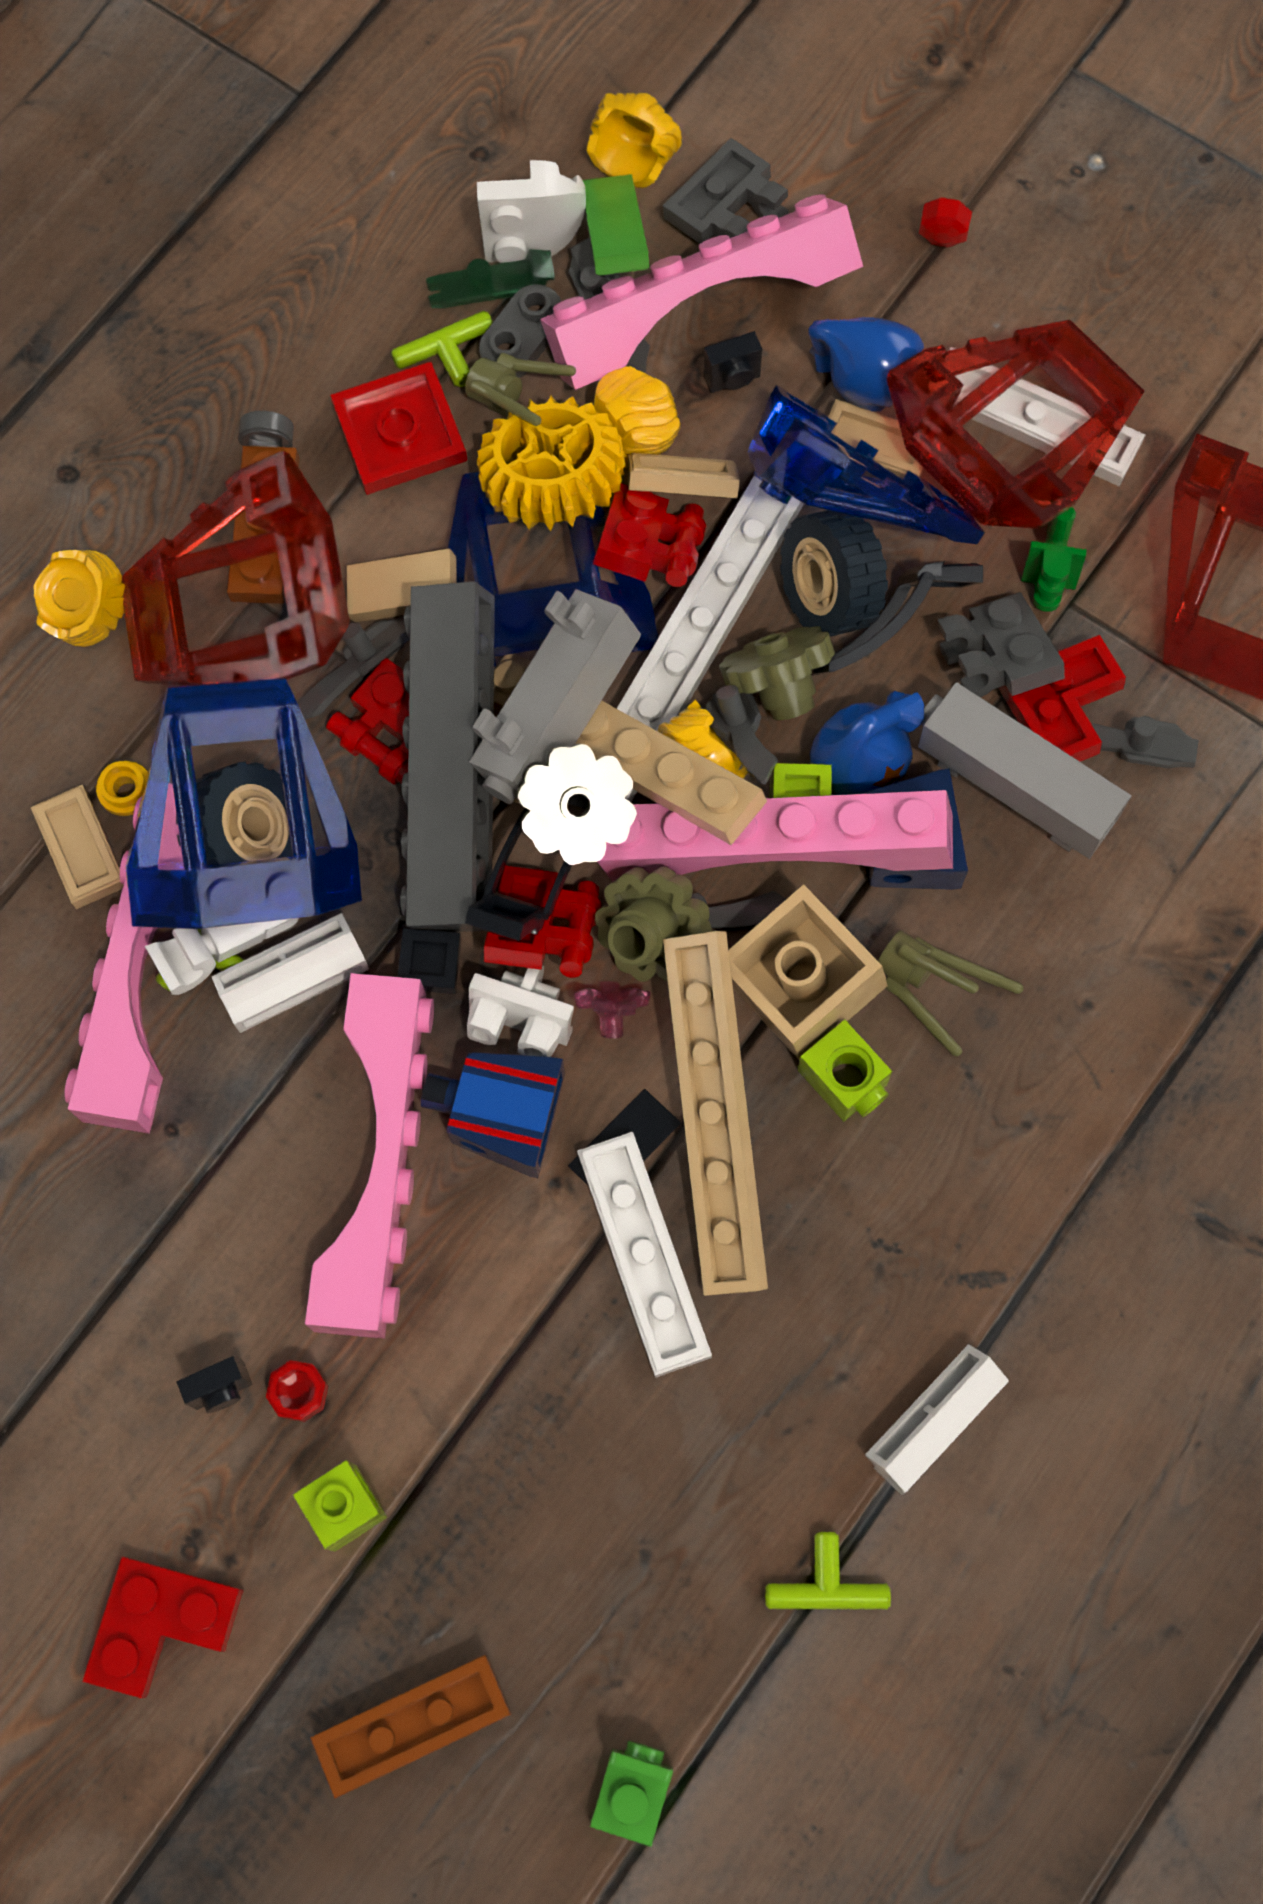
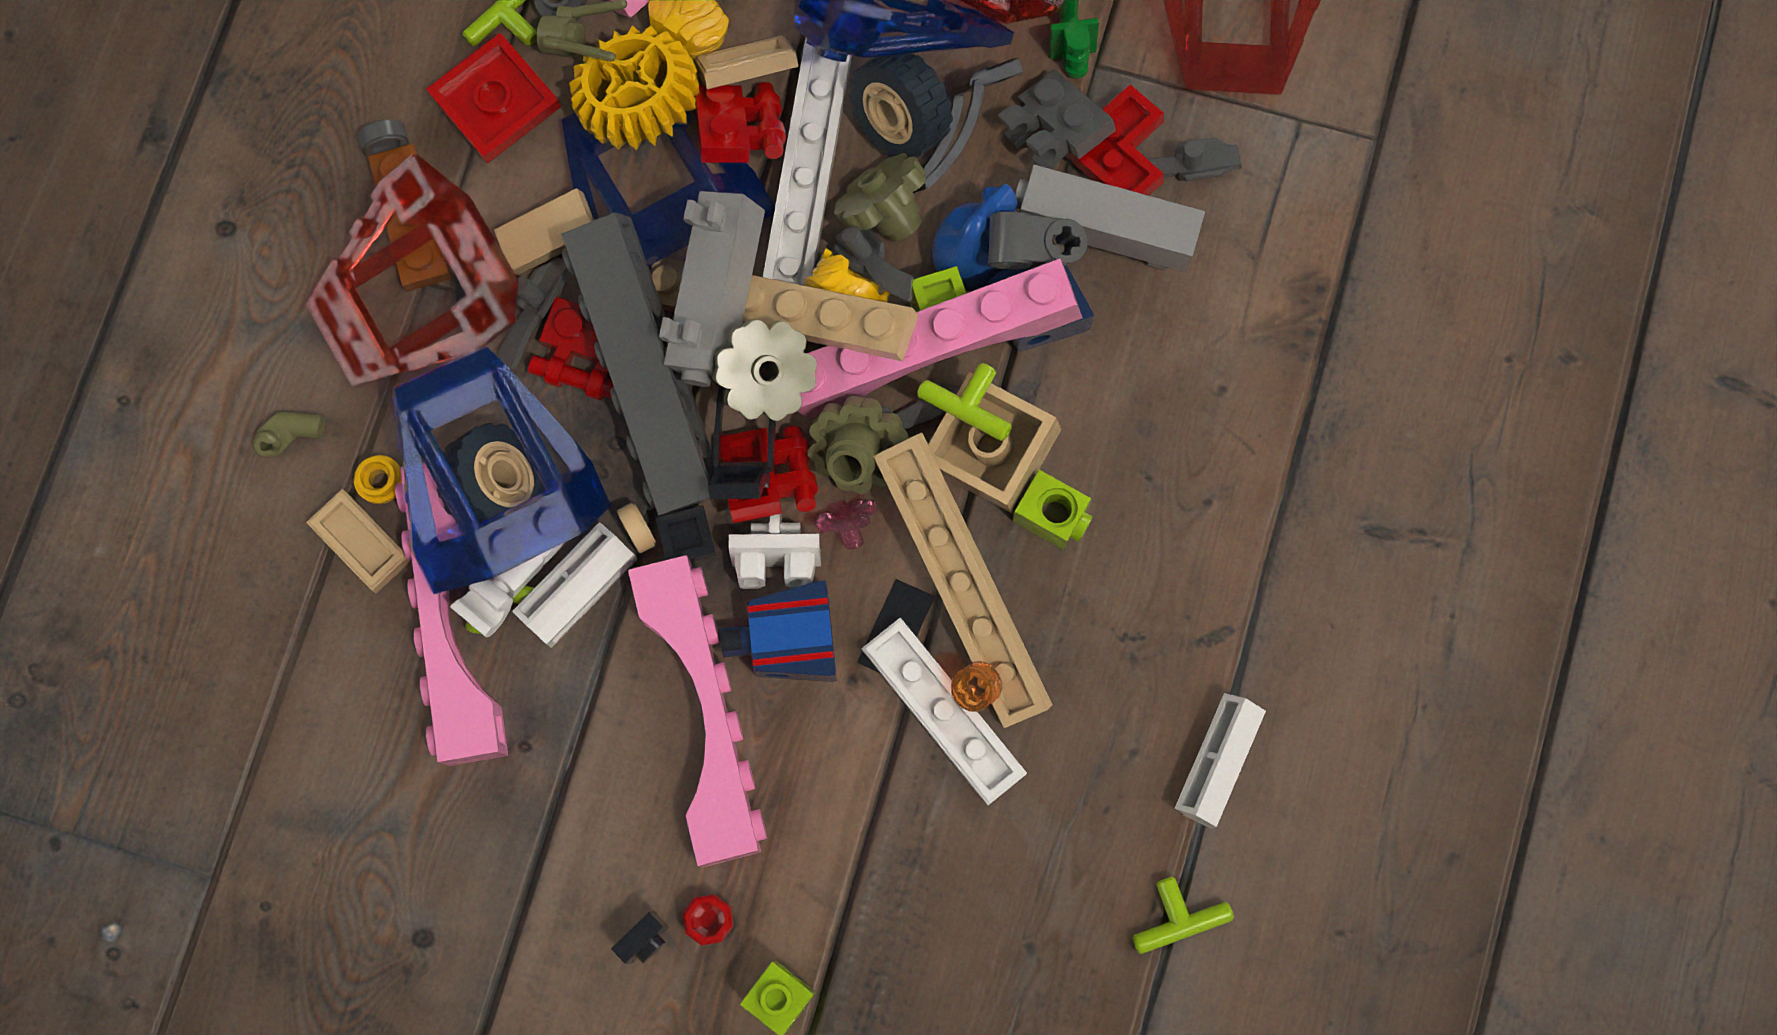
camera: 20 degrees left, 5 degrees up
(46, 702) = (285, 429): none -> olive arm
(79, 597) = (278, 331): yellow hair -> none
(379, 932) = (636, 527): none -> tan tile
(674, 1241) = (965, 694): none -> clear orange bush
(786, 920) = (966, 406): none -> lime piece
(912, 962) = (1073, 403): olive plant -> none
(916, 760) = (1026, 241): none -> dark grey piece

